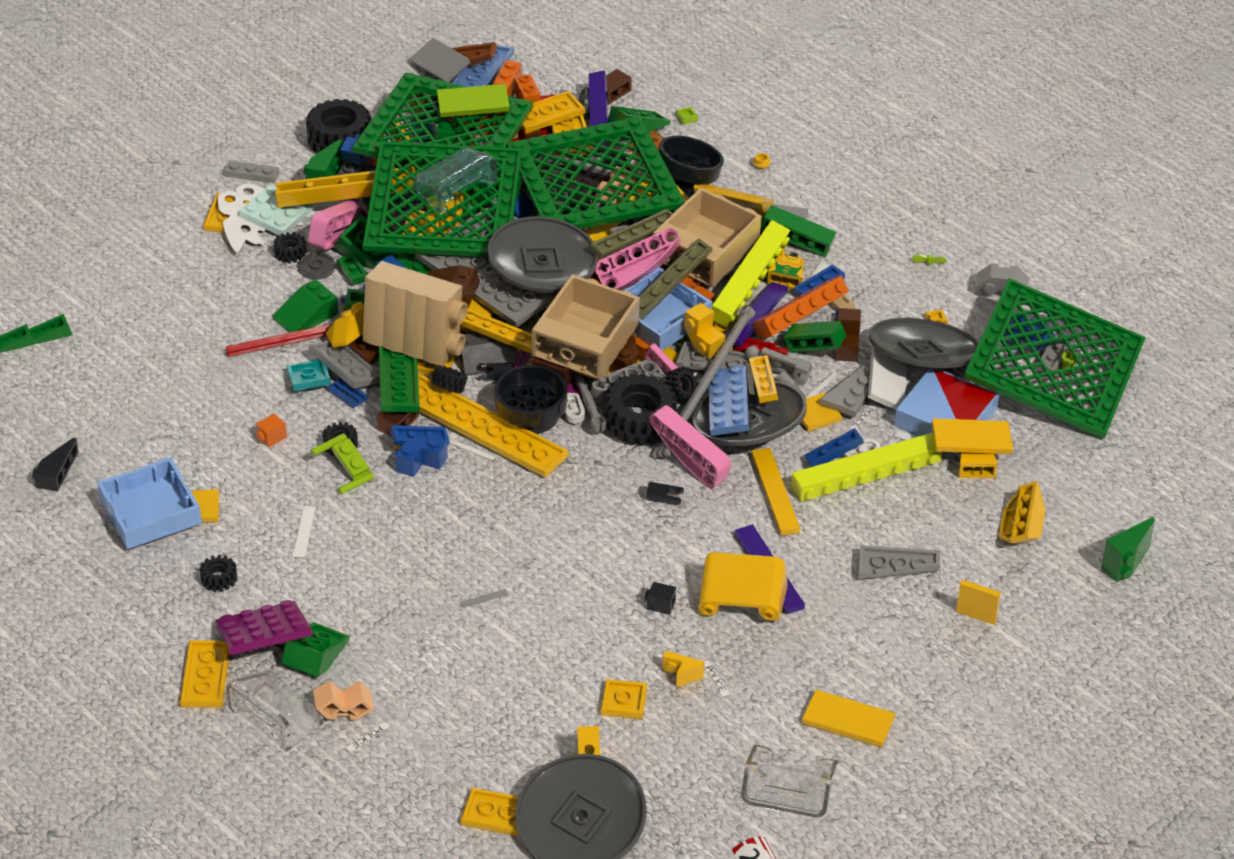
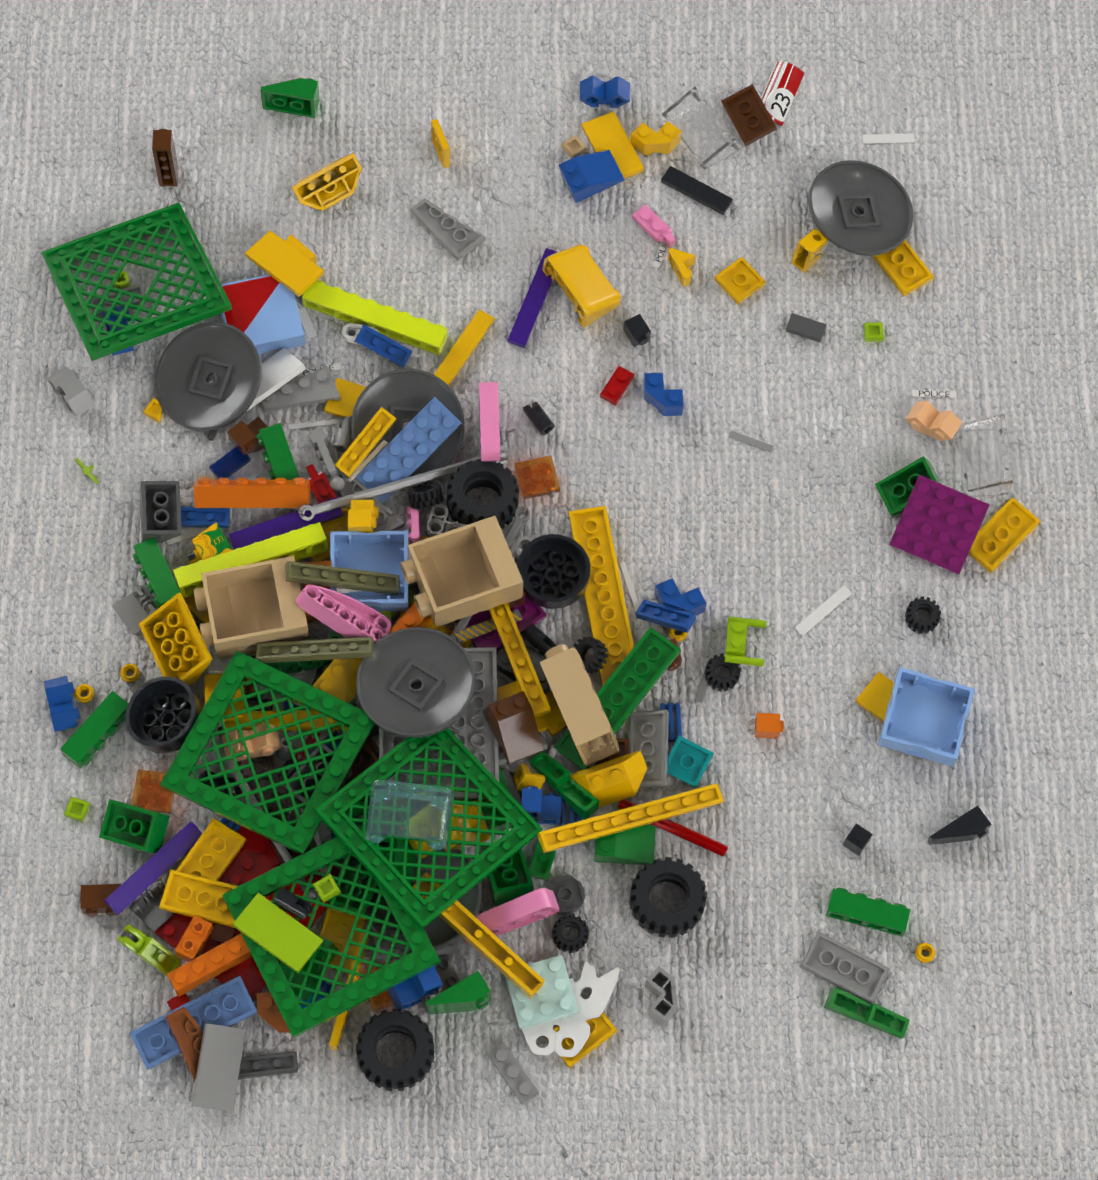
camera: 140 degrees left, 25 degrees up
(19, 388) = (927, 947): none -> yellow plate
(73, 348) = (844, 967): none -> light grey tile
(84, 379) = (868, 912): none -> green brick
(132, 410) = (857, 839): none -> black brick
(189, 253) = (663, 986): none -> light grey brick
(240, 311) = (673, 872): none -> black tyre
(310, 306) = (630, 818): none -> yellow plate
(468, 742) = (873, 332): none -> lime tile
(469, 137) = (326, 888): none -> lime tile
(484, 116) = (293, 903): none -> black hinge
(528, 703) = (806, 327): none -> dark grey tile
(555, 80) = (148, 950): none -> lime plate
(587, 564) = (668, 401): none -> blue brick
(618, 458) = (537, 477): none -> clear orange plate
(632, 558) = (617, 385): none -> red plate
(727, 144) = (95, 730): none -> green brick
(740, 685) = (654, 226): none -> bright pink hinge
(740, 738) = (696, 190): none -> black tile
(748, 186) = (127, 668): none -> yellow plate
(760, 141) = (61, 704): none -> blue brick
(766, 823) = (749, 115): none -> reddish brown plate
(821, 738) = (648, 141): none -> yellow brick
(837, 673) = (590, 174): none -> blue slope
(849, 258) = (160, 510): none -> dark grey slope
(880, 695) = (573, 147): none -> tan tile
(909, 747) = (613, 92): none -> blue brick
(1147, 425) = (165, 157): none -> reddish brown brick

